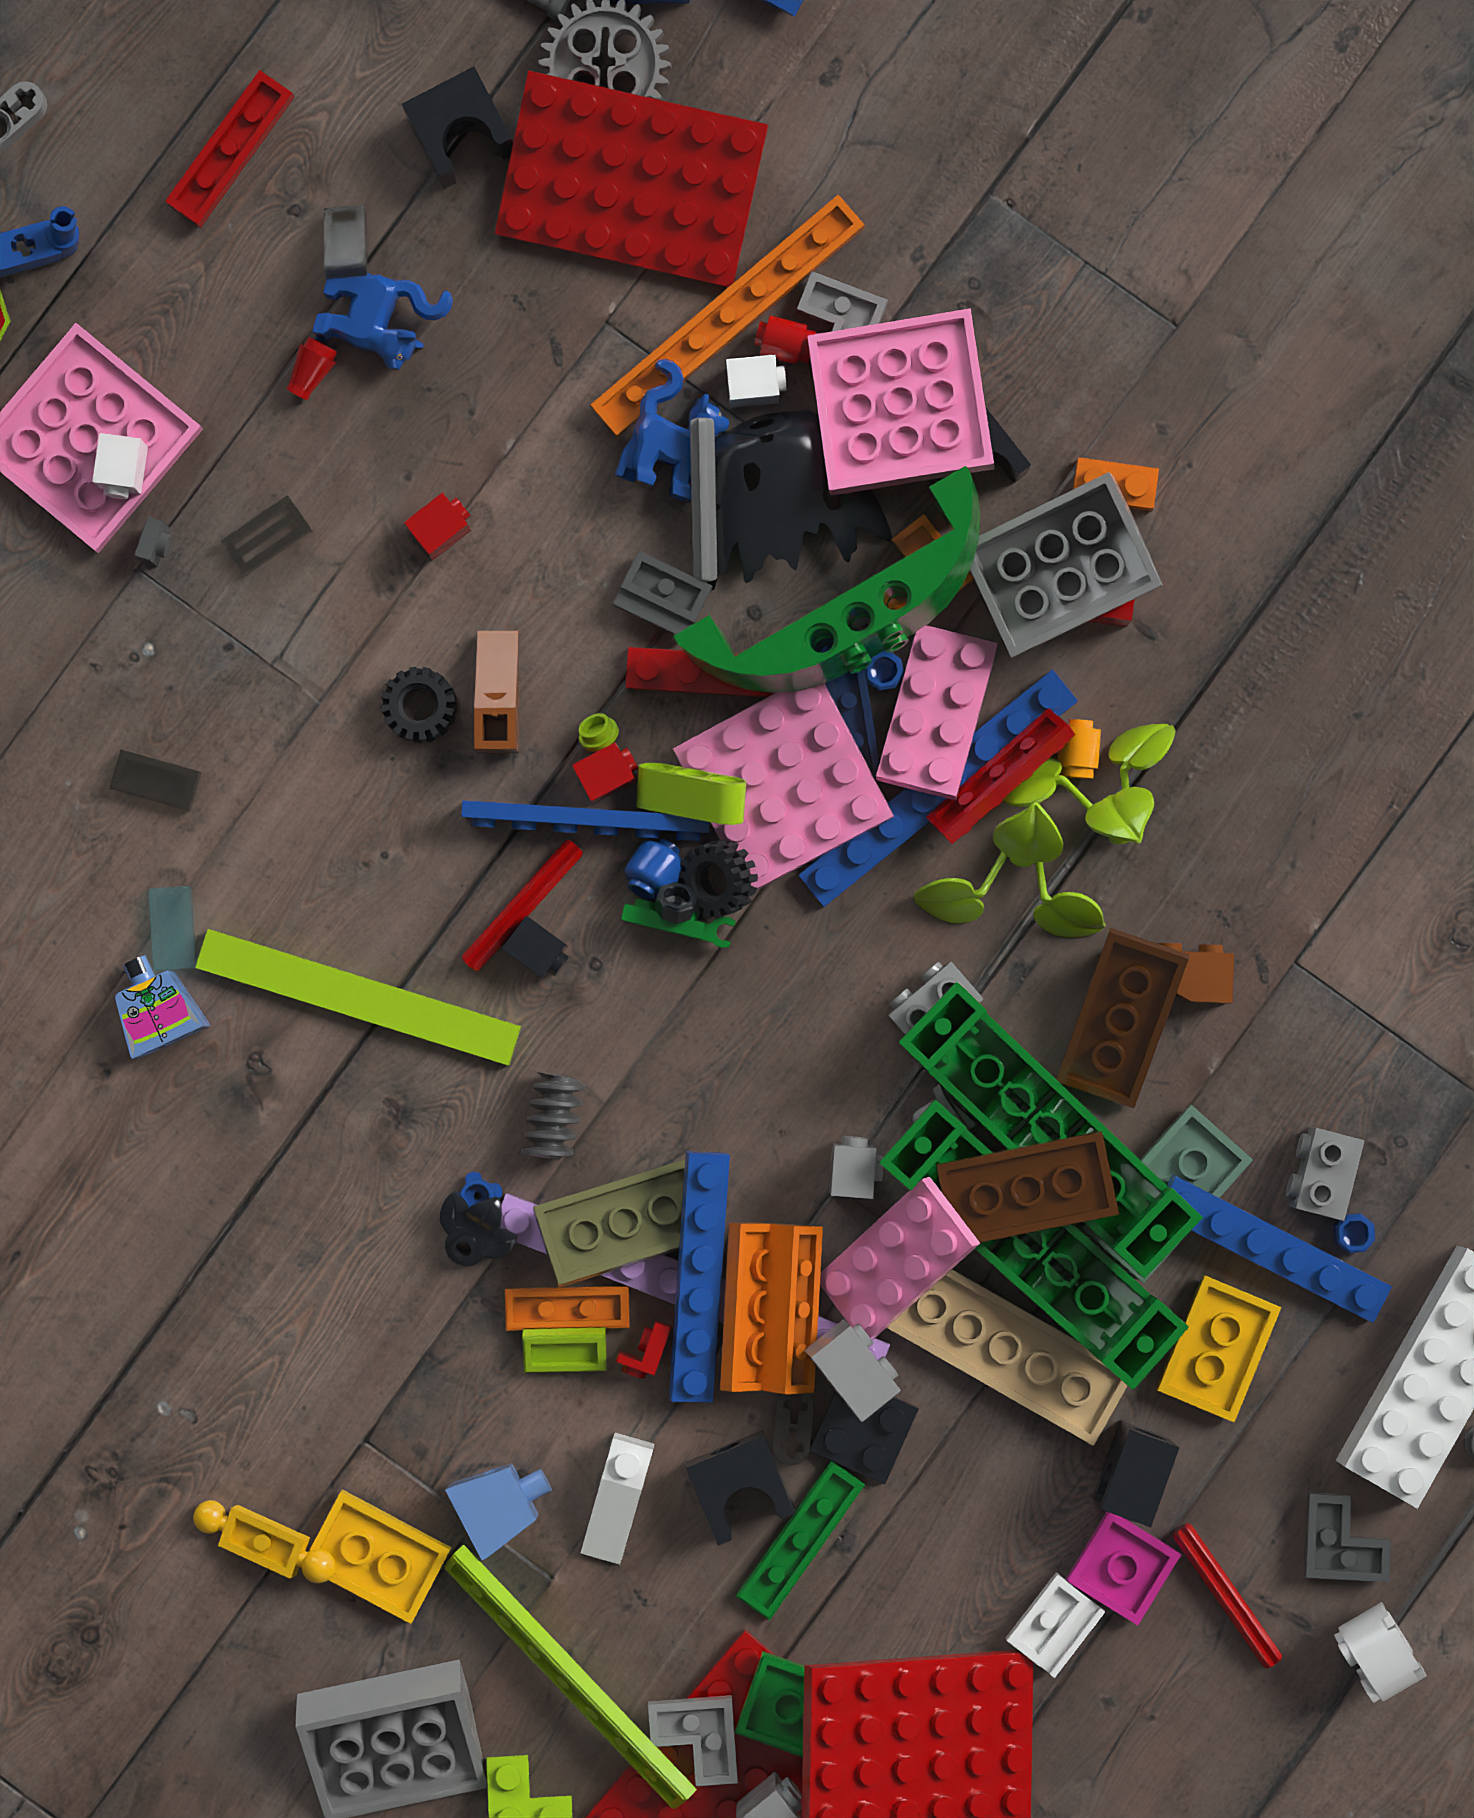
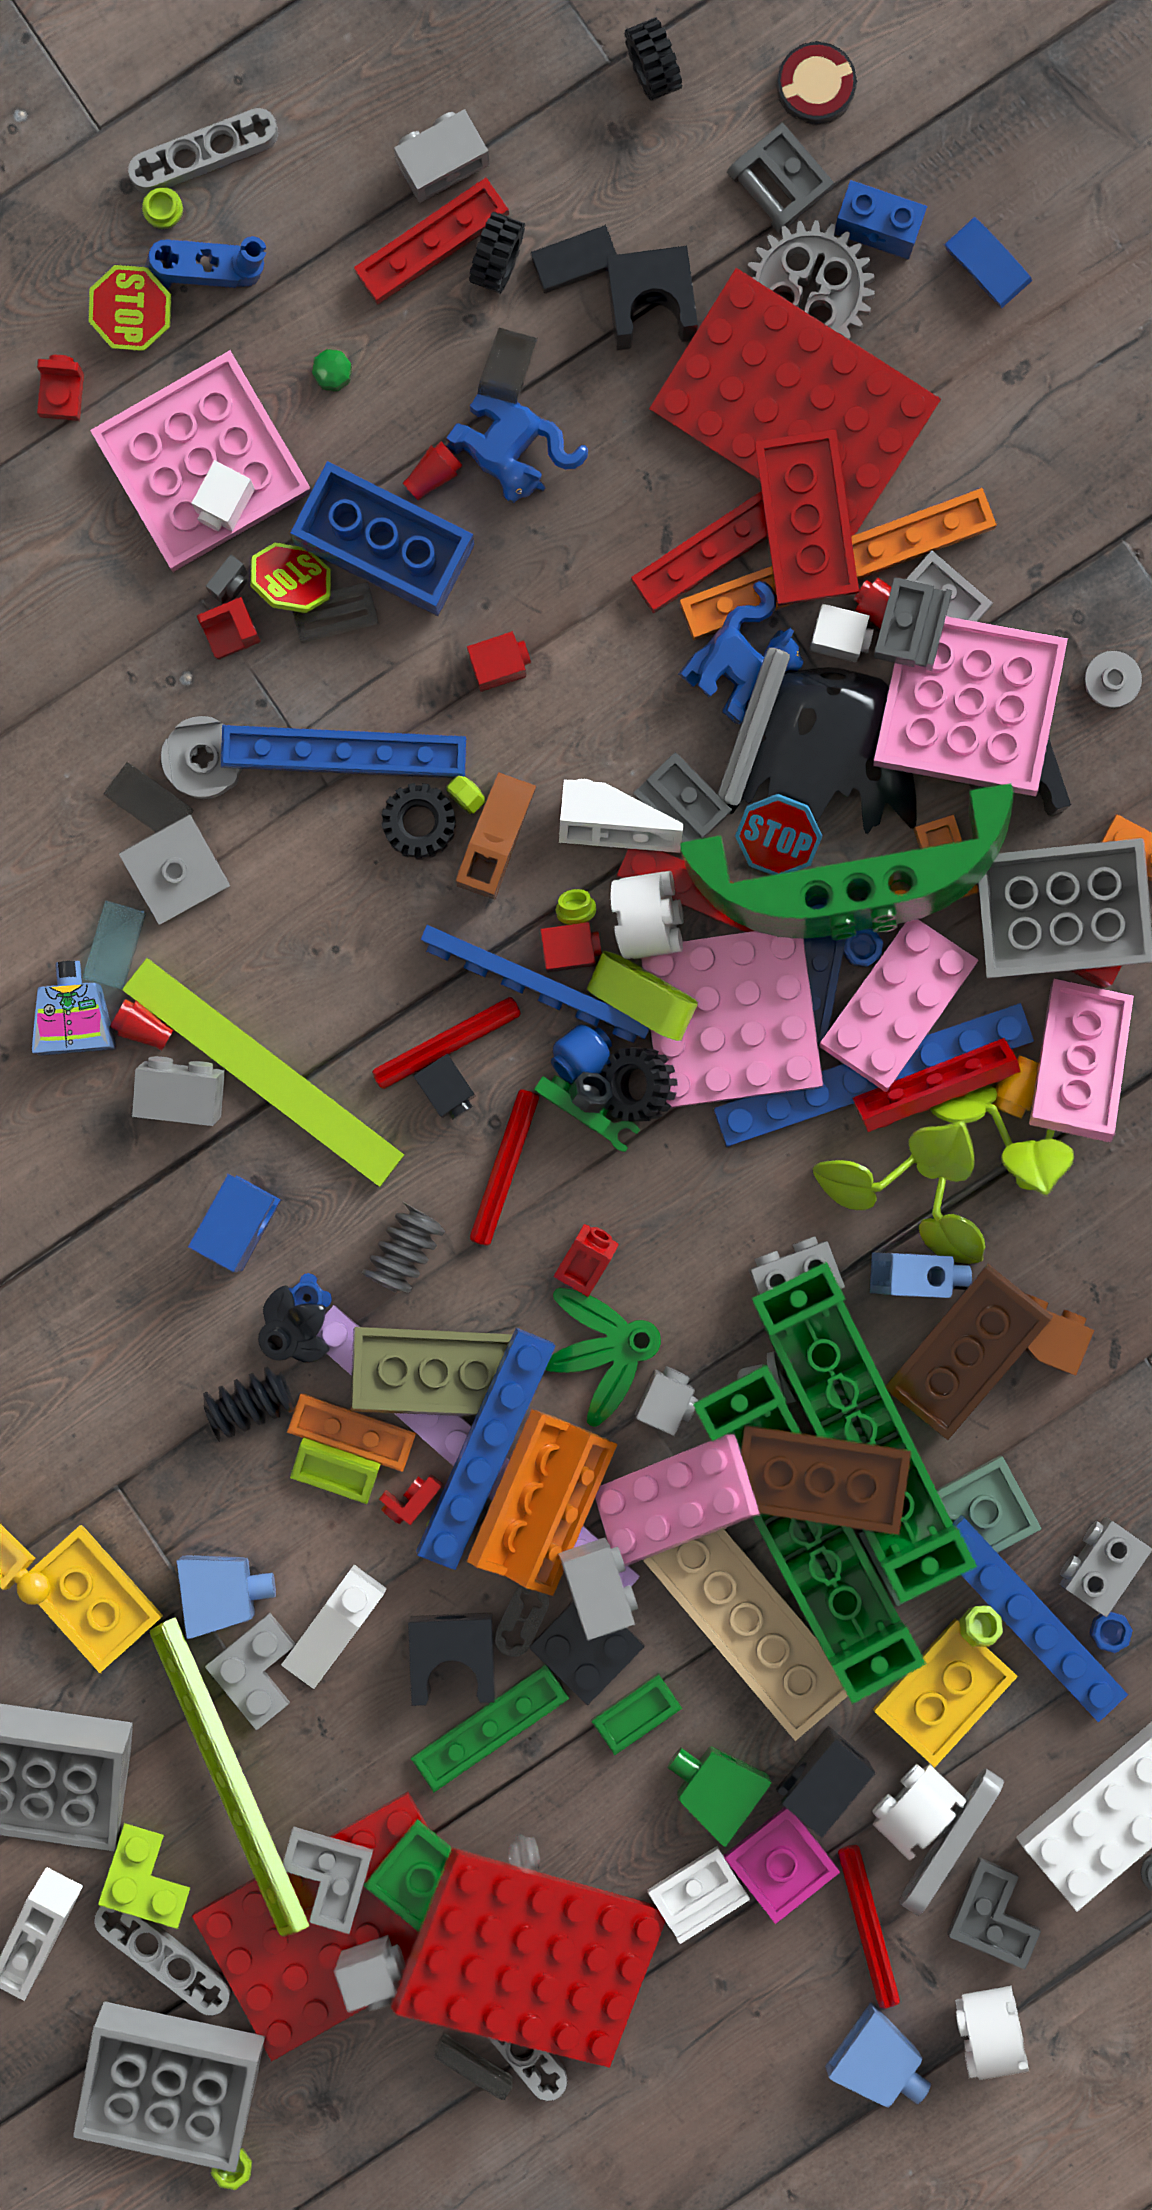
camera: 15 degrees right, 0 degrees up
(171, 587) = (228, 628): none -> red panel
(180, 306) = (332, 370): none -> green tile
(203, 835) = (174, 869): none -> light grey plate
(209, 64) = (441, 155): none -> light grey brick
(212, 518) = (290, 578): none -> piece
(213, 728) = (188, 776): none -> light grey plate
(225, 995) = (140, 1025): none -> red cone
(284, 1045) = (178, 1091): none -> light grey brick
(286, 449) = (382, 538): none -> blue brick
(296, 138) = (496, 252): none -> black tyre
(323, 665) = (343, 751): none -> blue tile
(370, 117) = (573, 258): none -> black tile
(383, 1150) = (234, 1223): none -> blue piece
(454, 662) = (465, 794): none -> lime tile
(457, 1316) = (248, 1403): none -> black piece
(545, 1569) = (243, 1666): none -> light grey plate
(596, 636) = (609, 818): none -> white slope
(601, 348) = (702, 554): none -> red plate
(620, 1003) = (504, 1167): none -> red axle
(668, 715) = (647, 915): none -> white brick
(681, 283) = (806, 517): none -> red plate
(730, 1062) = (586, 1259): none -> red bracket
(765, 594) = (778, 835): none -> piece
(769, 1148) = (593, 1353): none -> green plant
(818, 347) = (912, 624): none -> dark grey plate
(875, 1645) = (524, 1852): none -> clear plate
(934, 1475) = (636, 1714): none -> green tile
(1028, 330) = (1113, 679): none -> light grey piece
(1037, 1518) = (718, 1790): none -> green torso
(1038, 964) = (908, 1275): none -> medium blue torso
(1129, 703) = (1081, 1060): none -> bright pink plate
(1229, 1272) = (981, 1626): none -> lime tile
(1232, 1469) = (918, 1810): none -> white brick
(1276, 1487) = (951, 1842): none -> light grey beam
(1282, 1719) = (878, 2061): none -> medium blue torso

